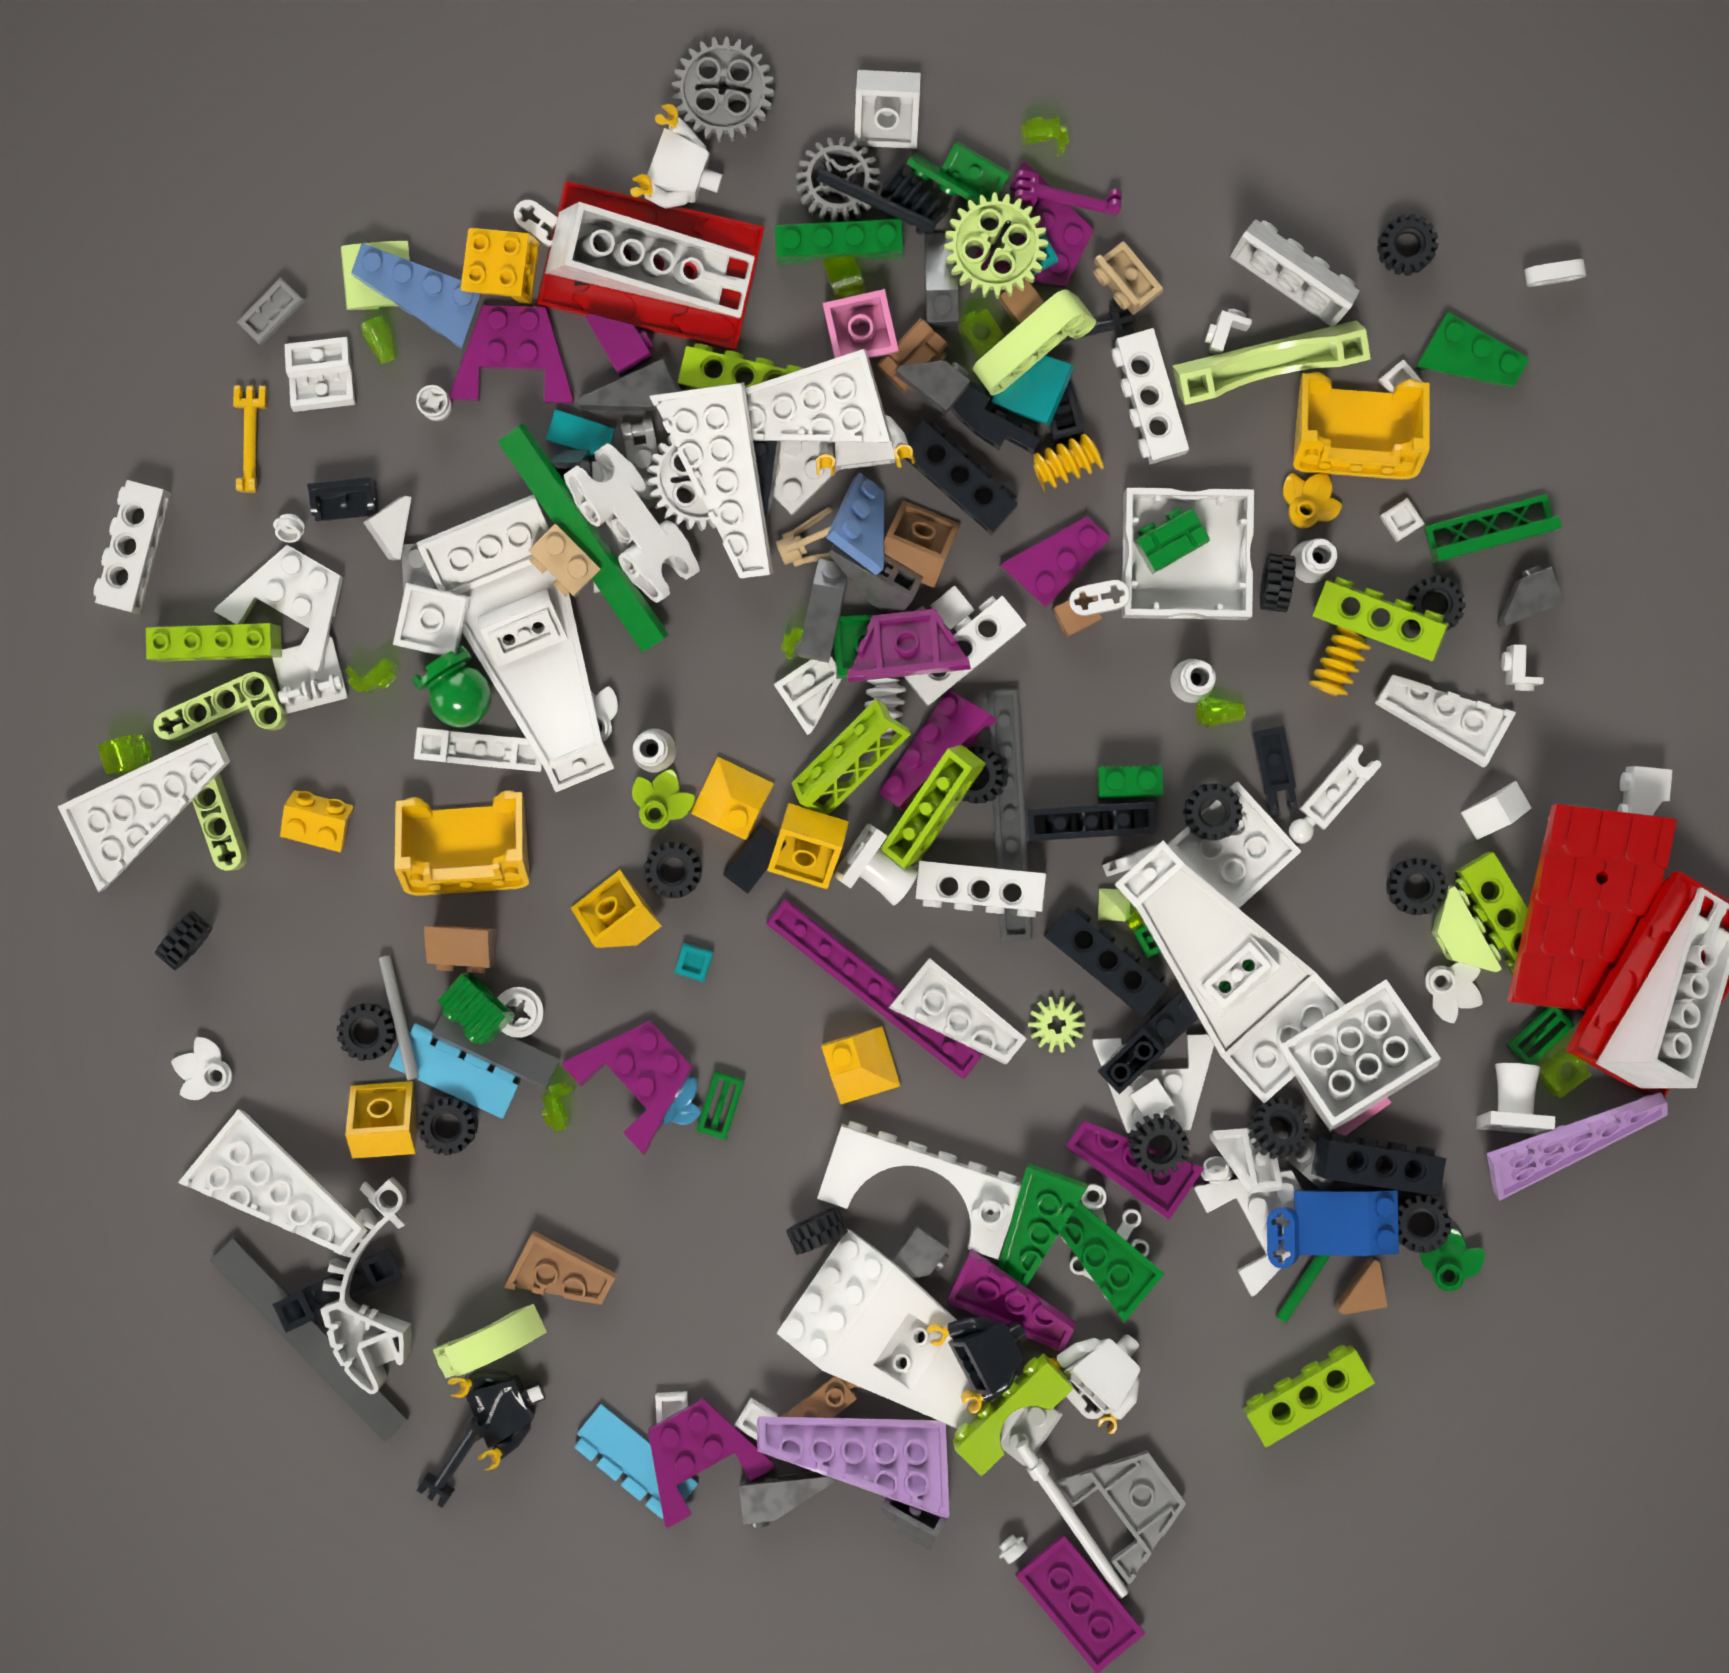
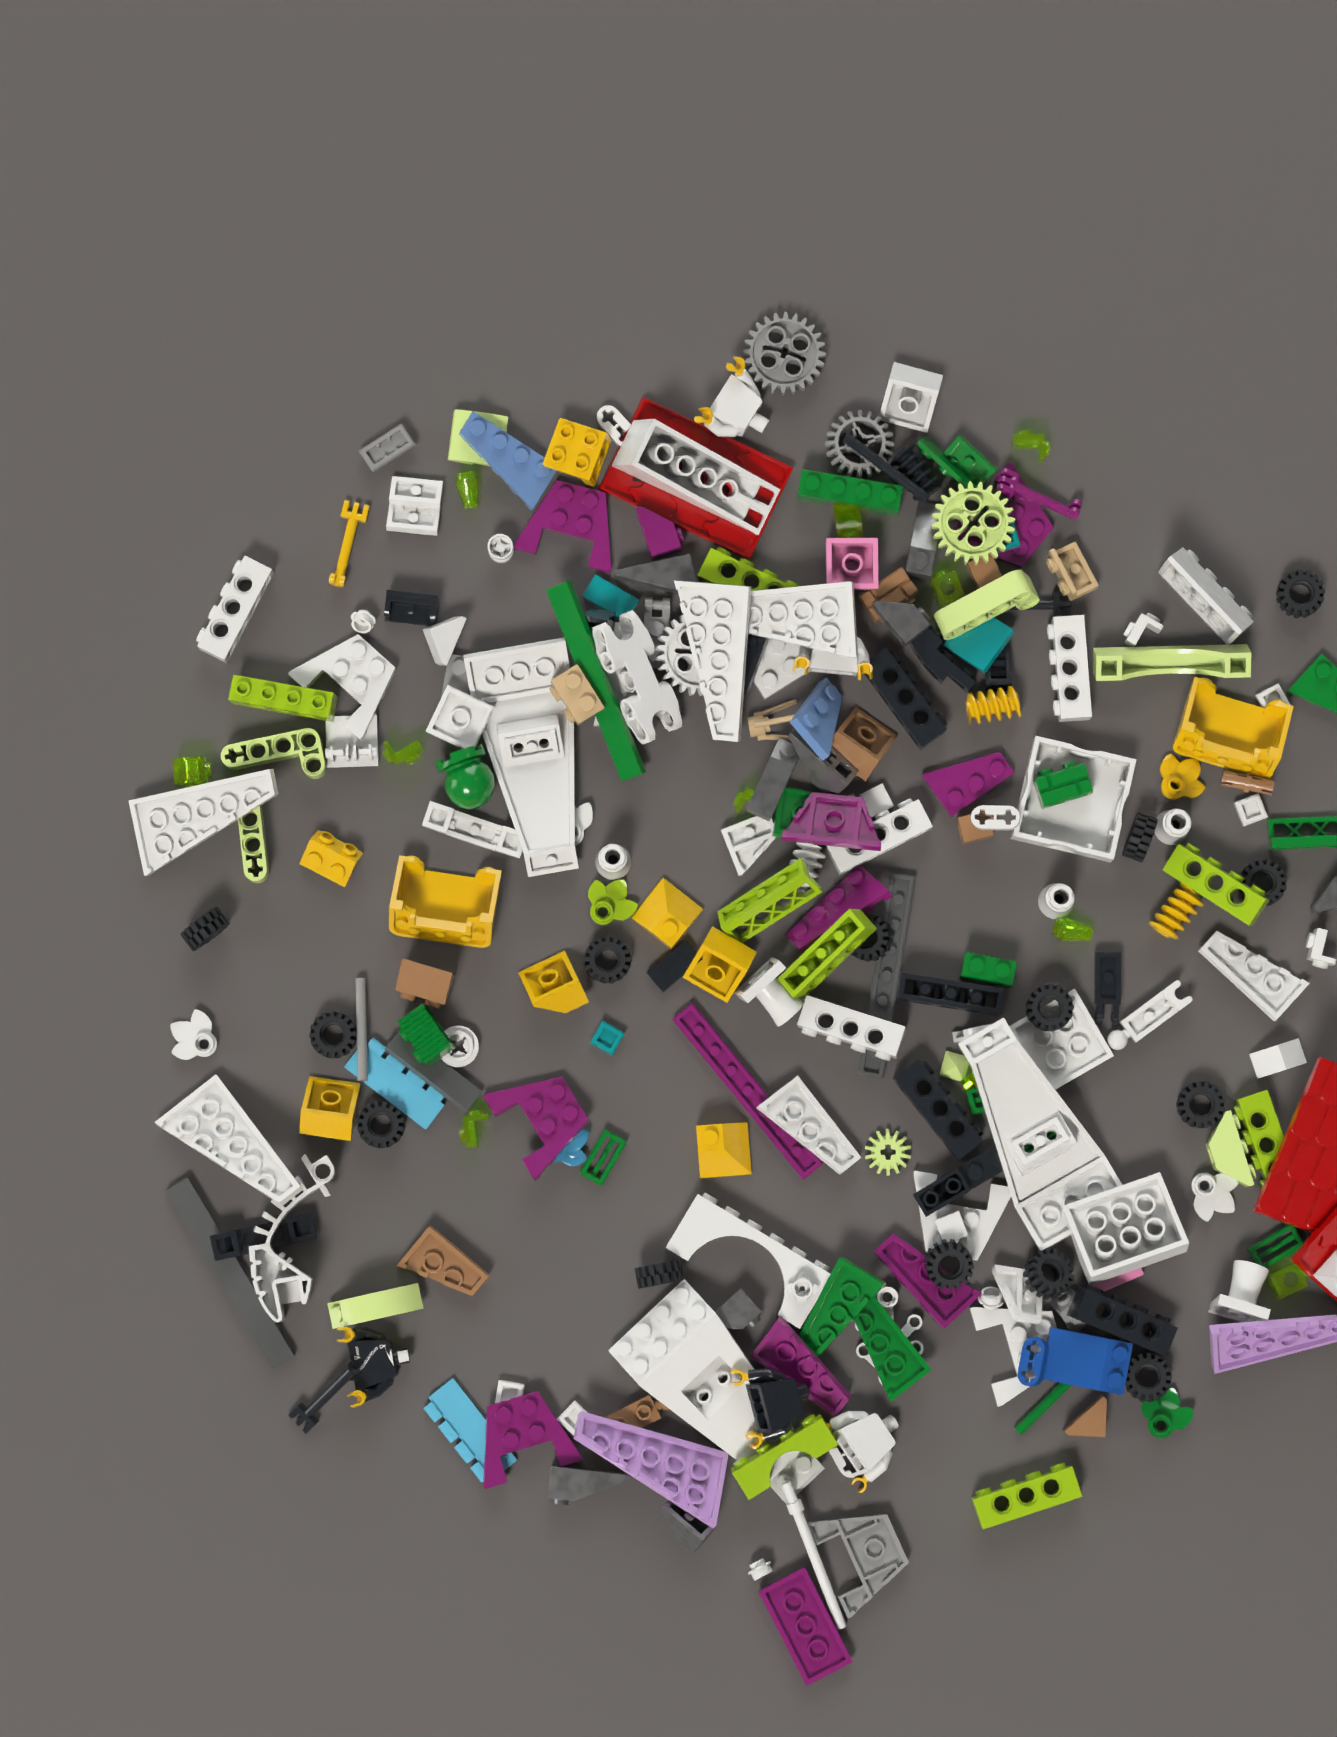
camera: 10 degrees right, 5 degrees down
(1391, 487) = (1247, 782): none -> medium nougat pin

